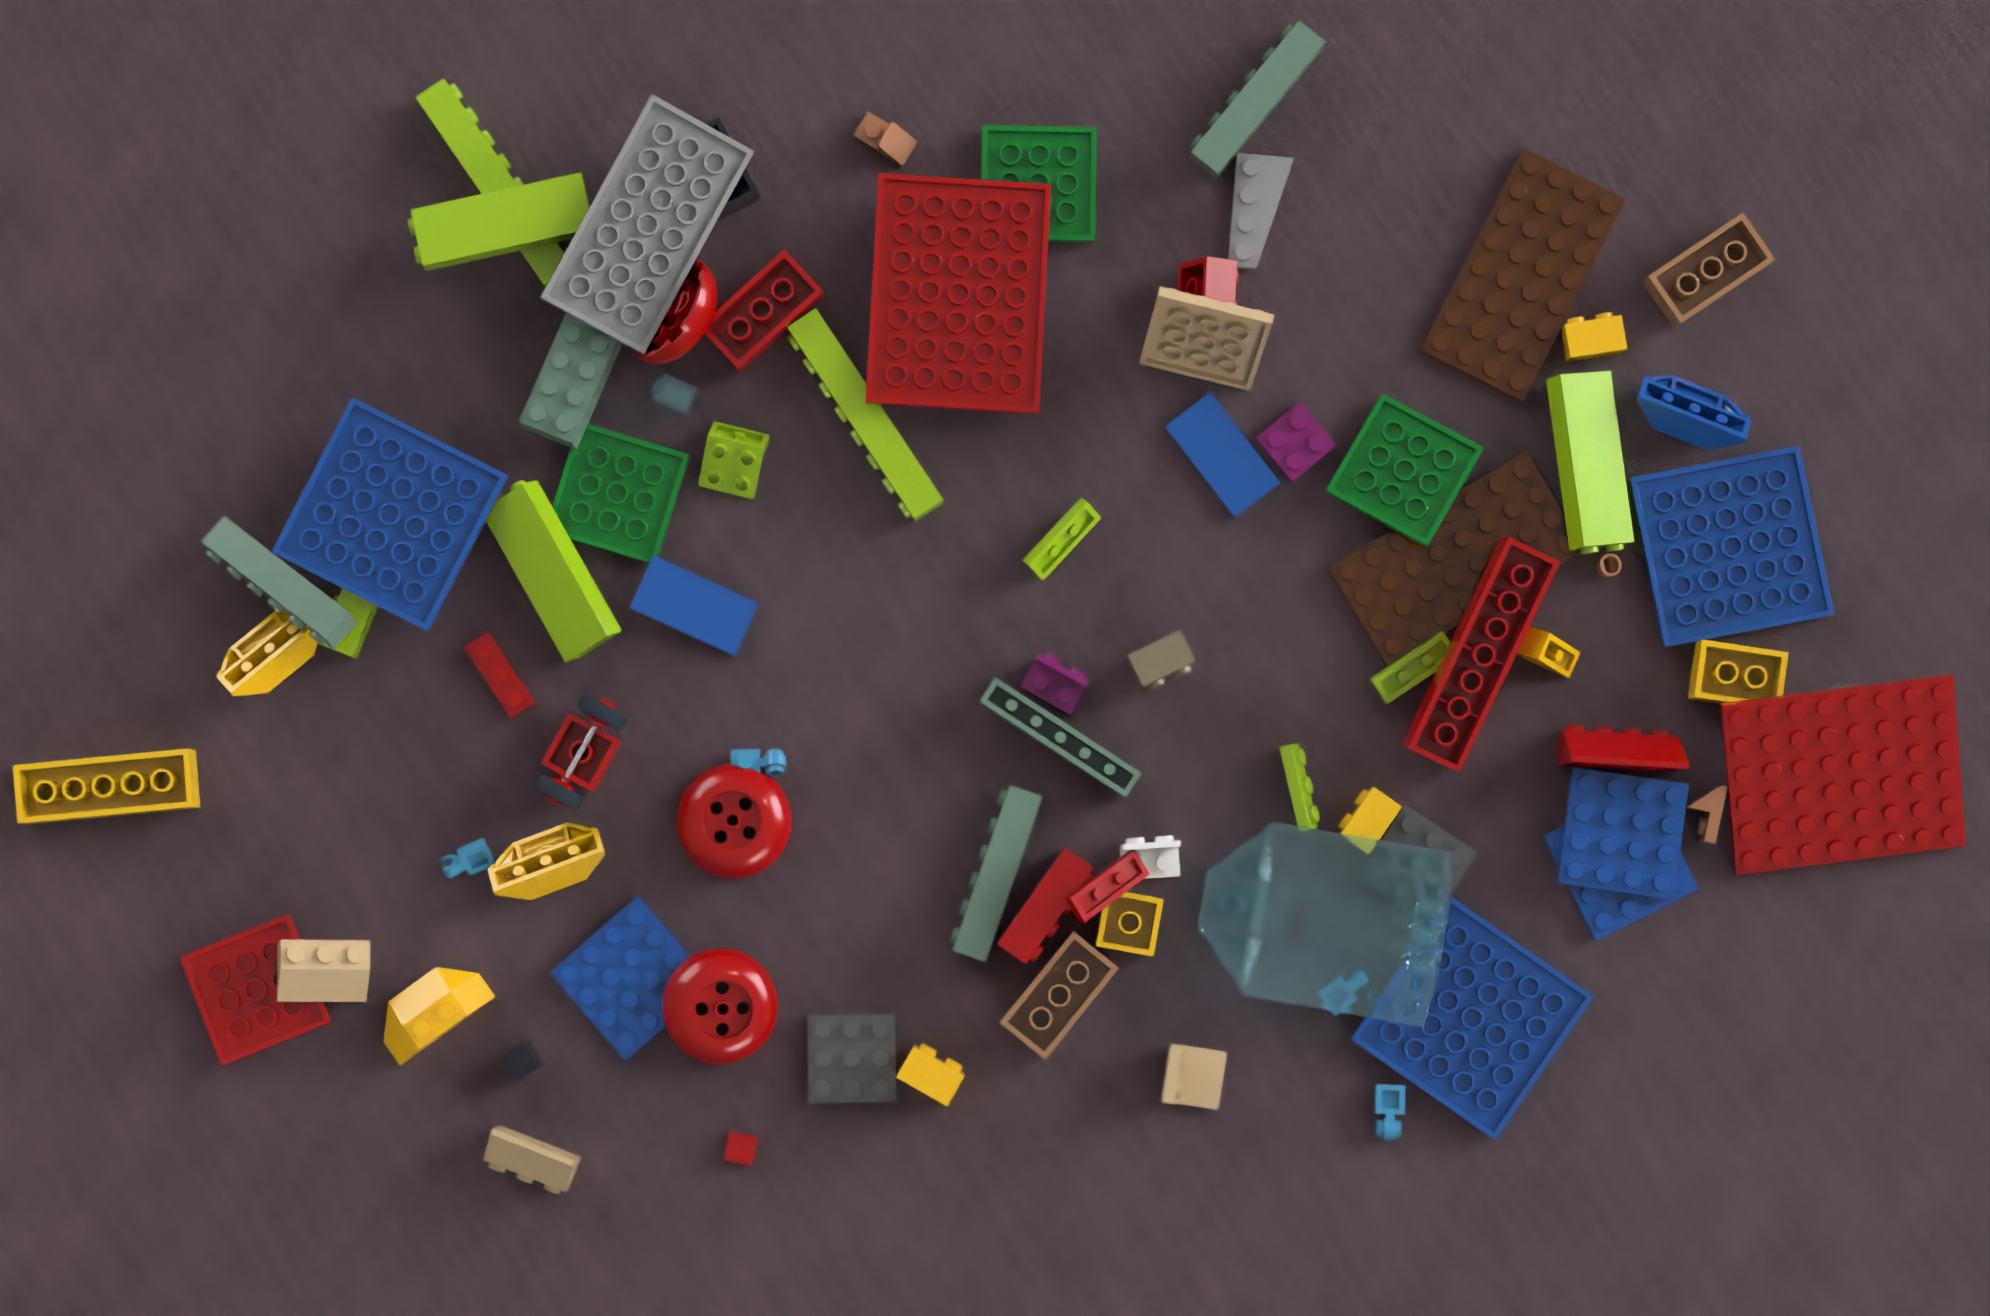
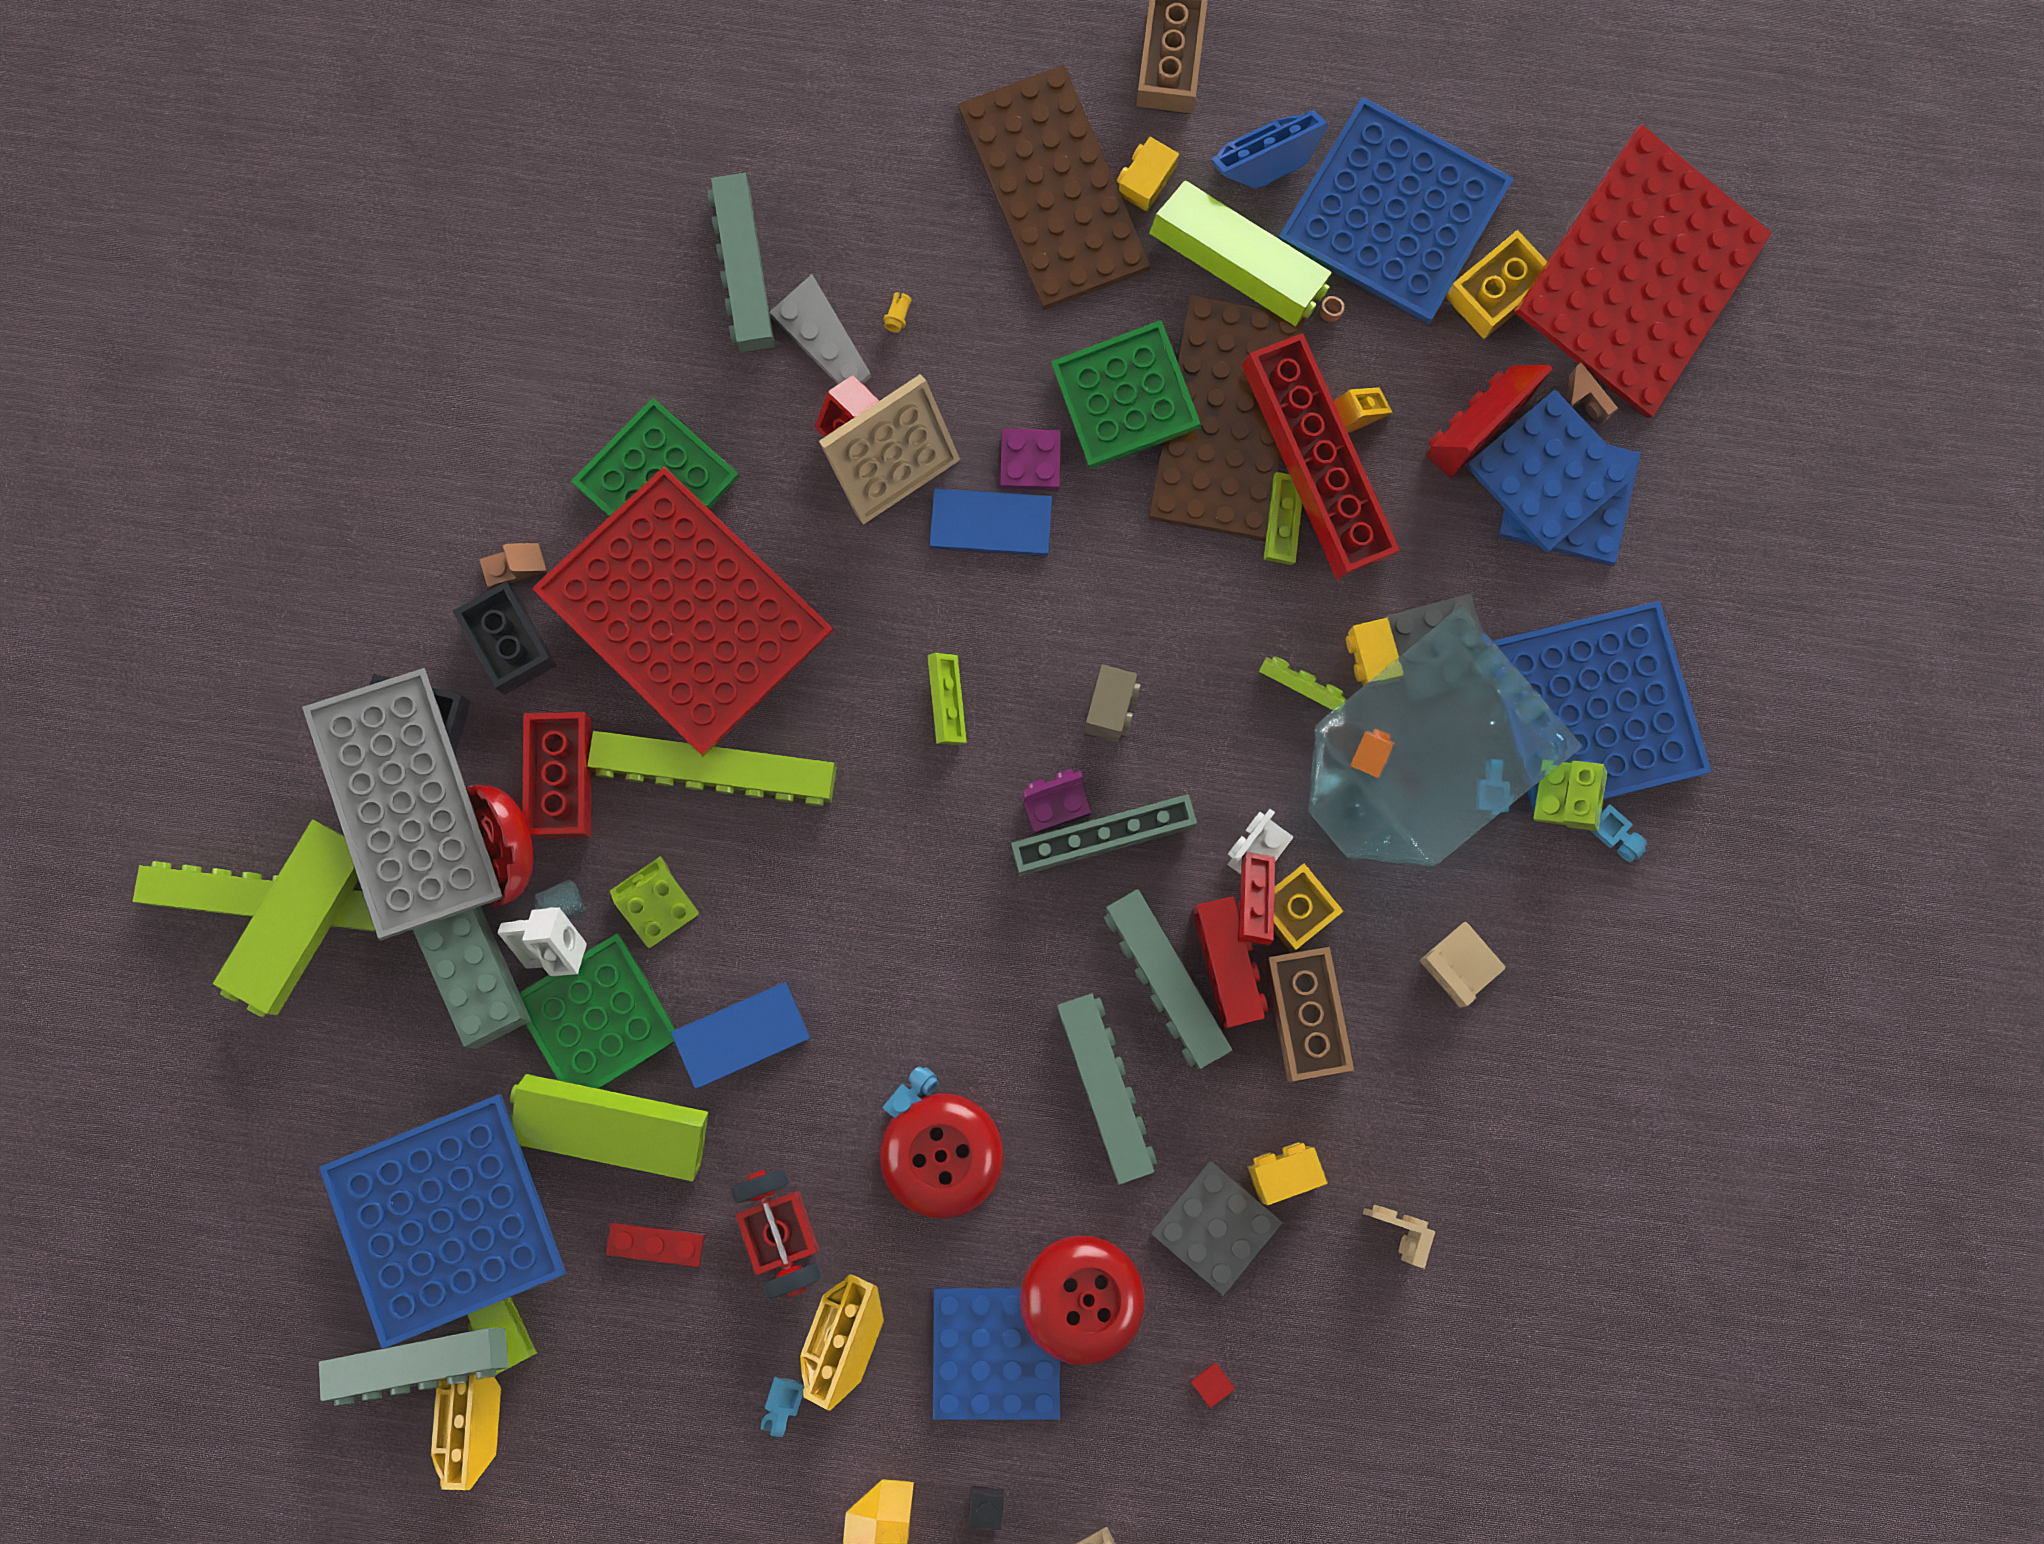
camera: 45 degrees left, 5 degrees down
(639, 411) = (545, 942): none -> white brick
(826, 184) = (504, 638): none -> black brick
(881, 895) = (1105, 1088): none -> sand green brick
(958, 1207) = (1417, 1244): none -> tan bracket
(1290, 881) = (1373, 752): none -> orange brick
(1320, 247) = (895, 318): none -> yellow pin
(1385, 1052) = (1584, 795): none -> lime brick

